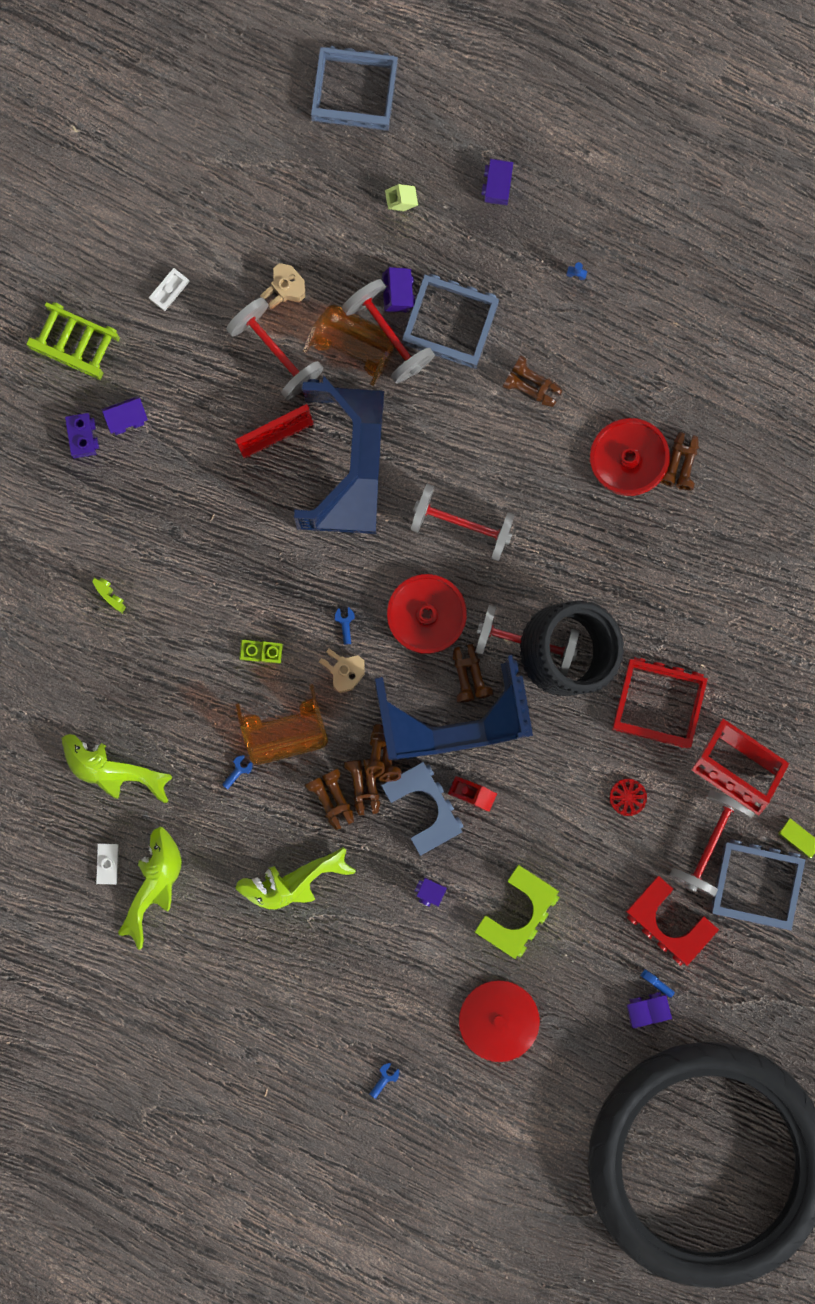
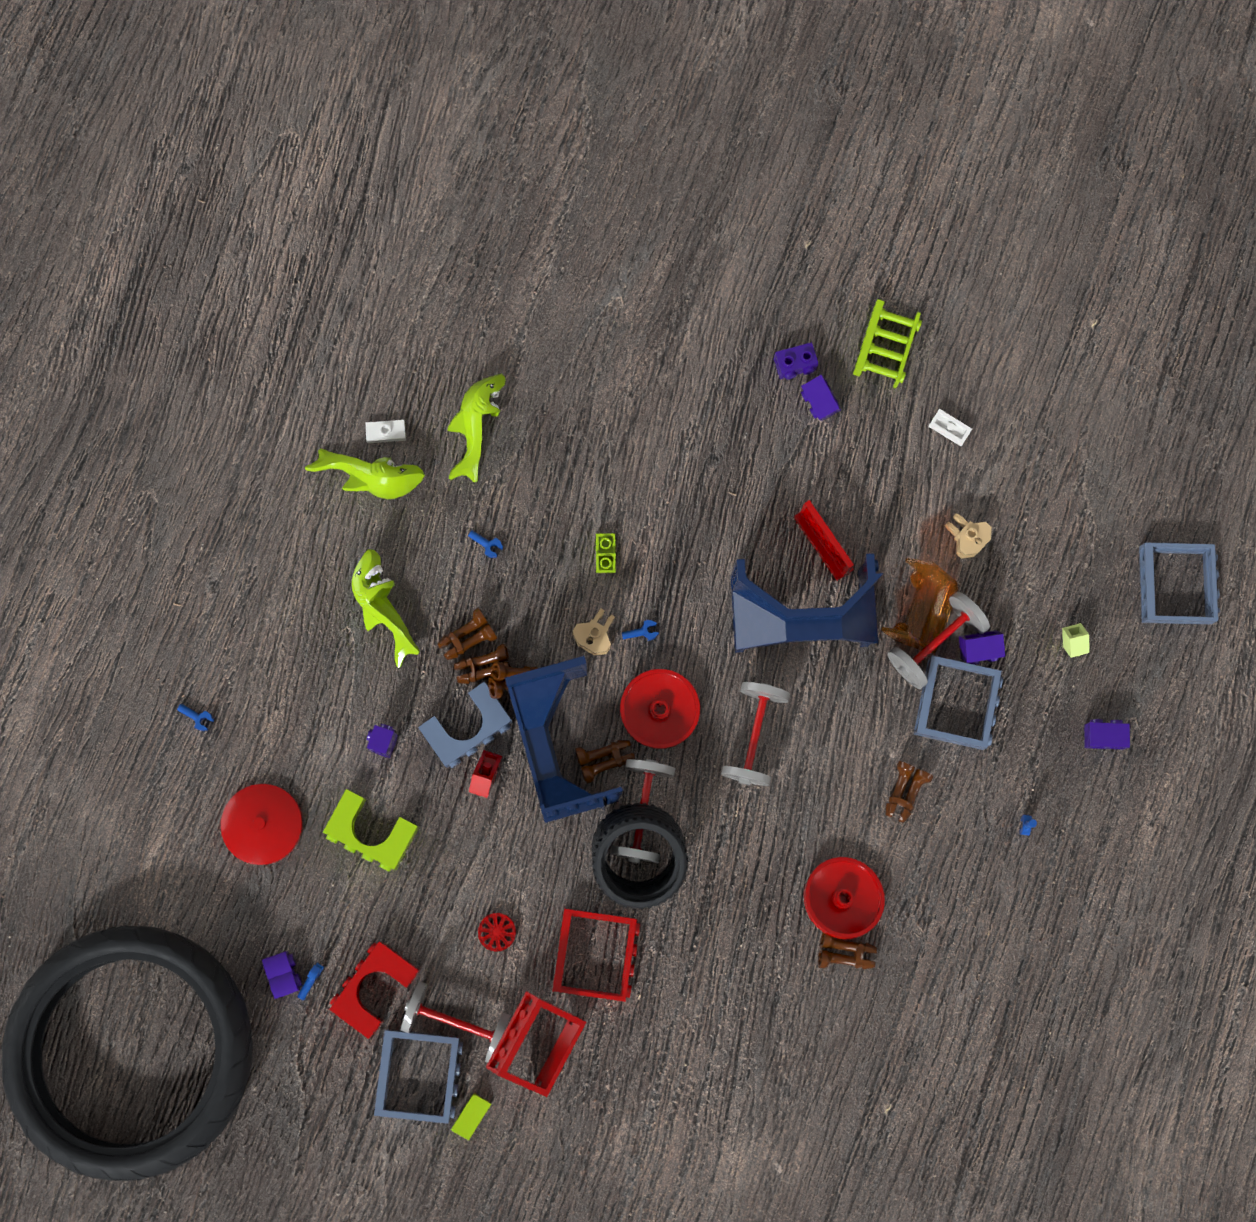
camera: 80 degrees right, 5 degrees down
(105, 591) = (647, 399): lime slope -> none
(247, 318) = (933, 503): light grey piece -> none
(285, 735) = (524, 582): clear orange windscreen -> none

